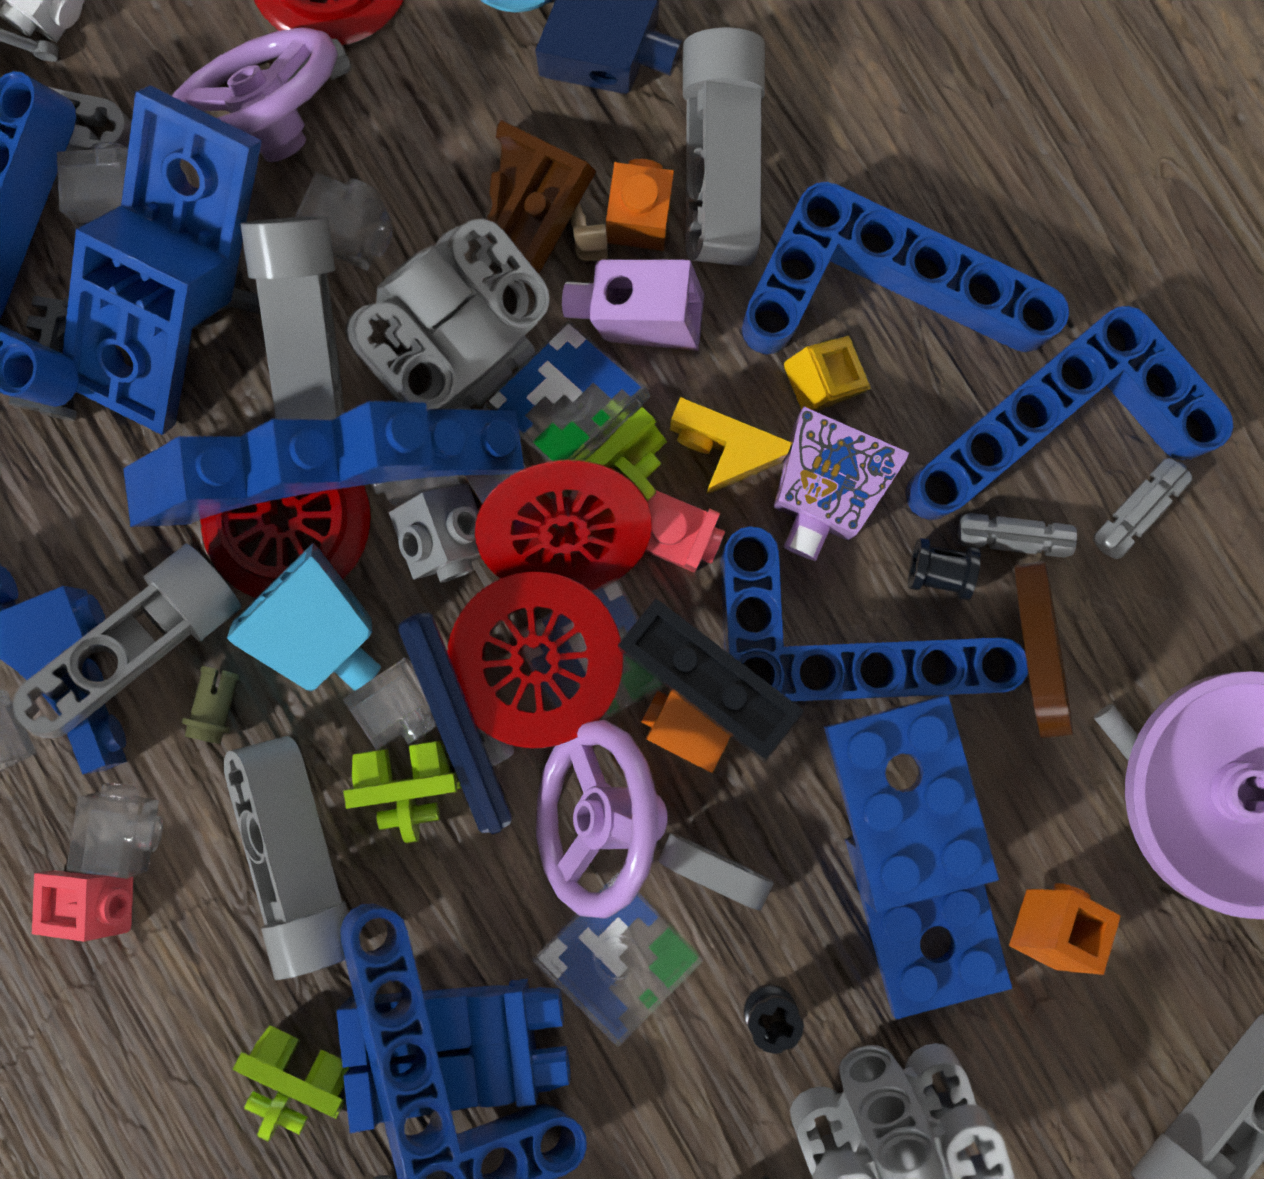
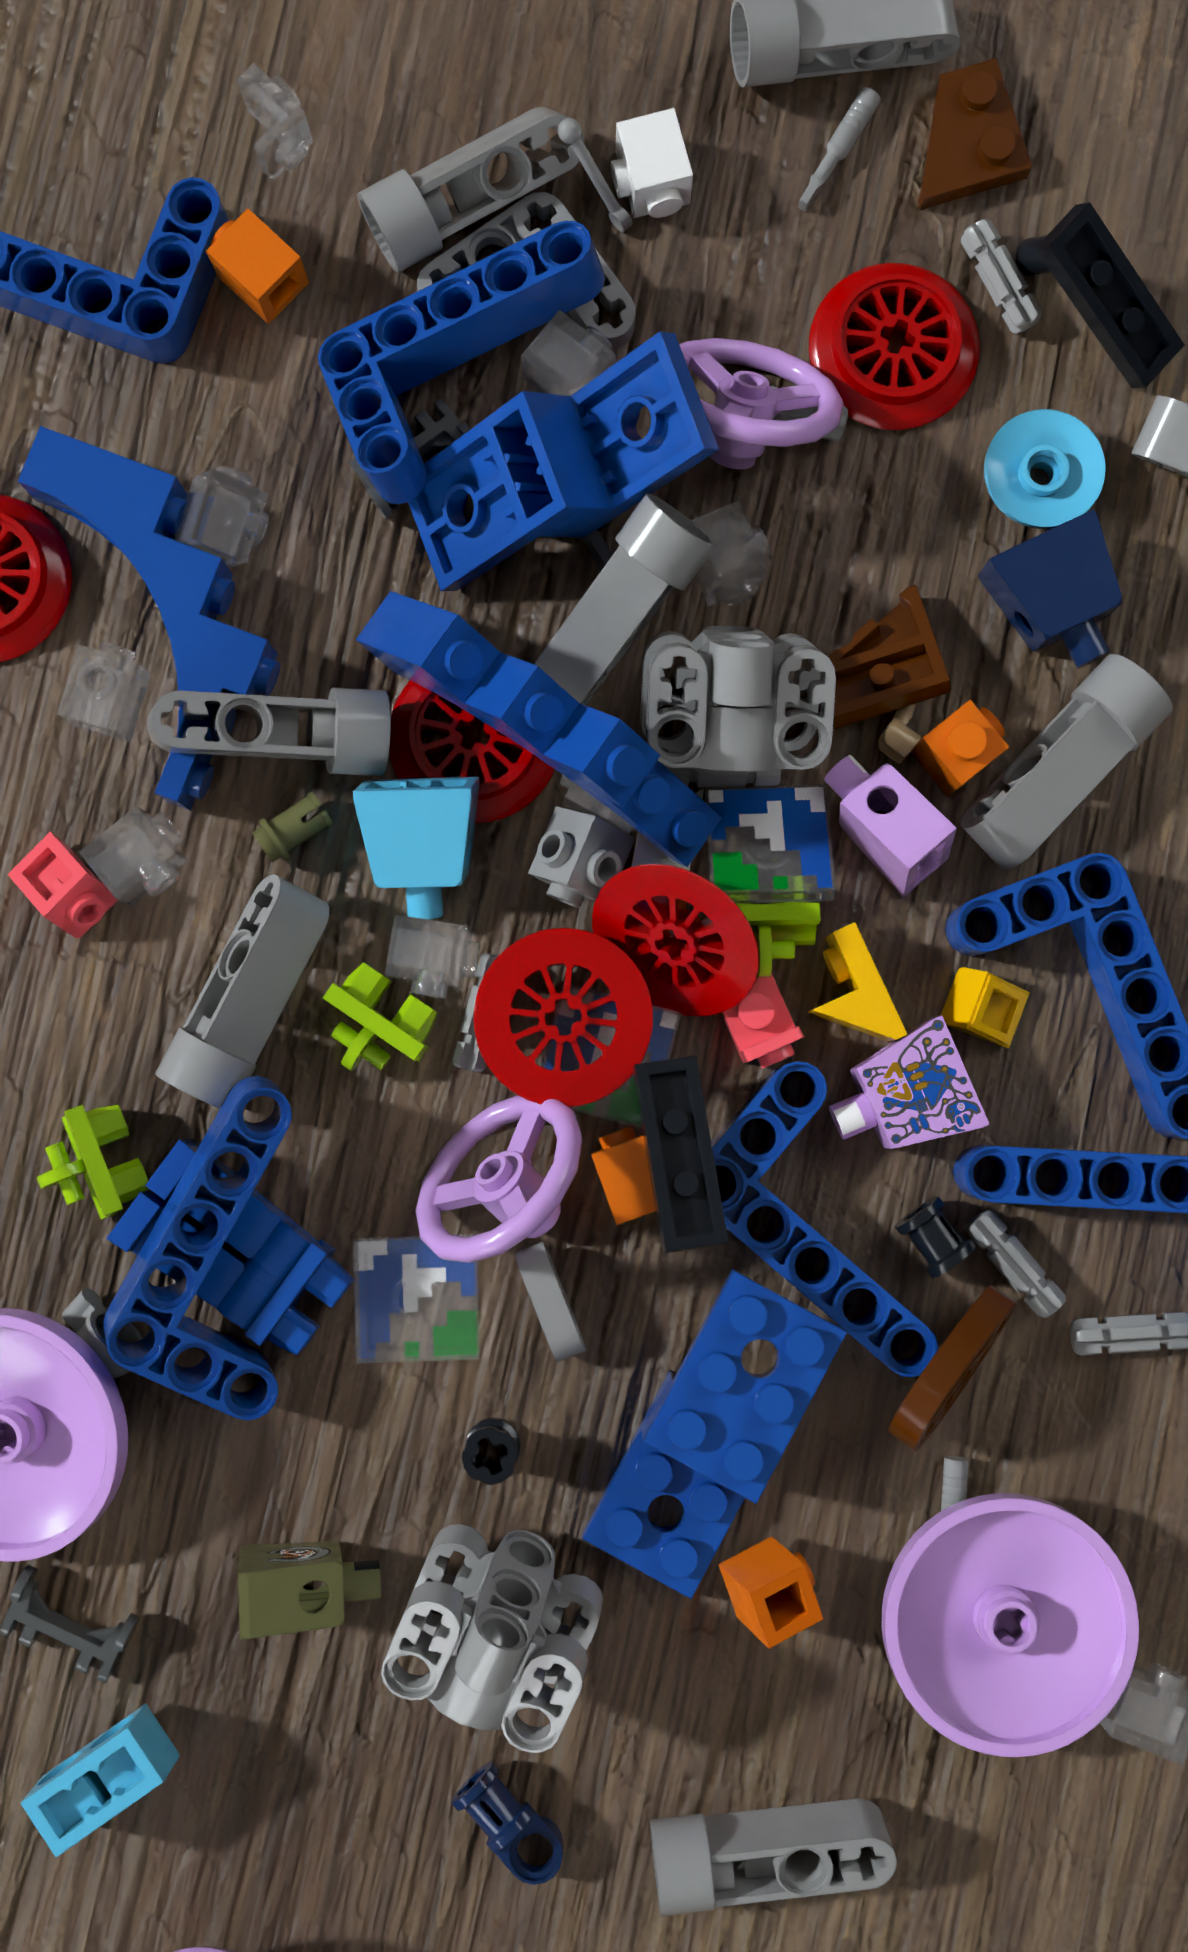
camera: 45 degrees right, 0 degrees up
(455, 722) = (461, 1009): dark blue axle -> none

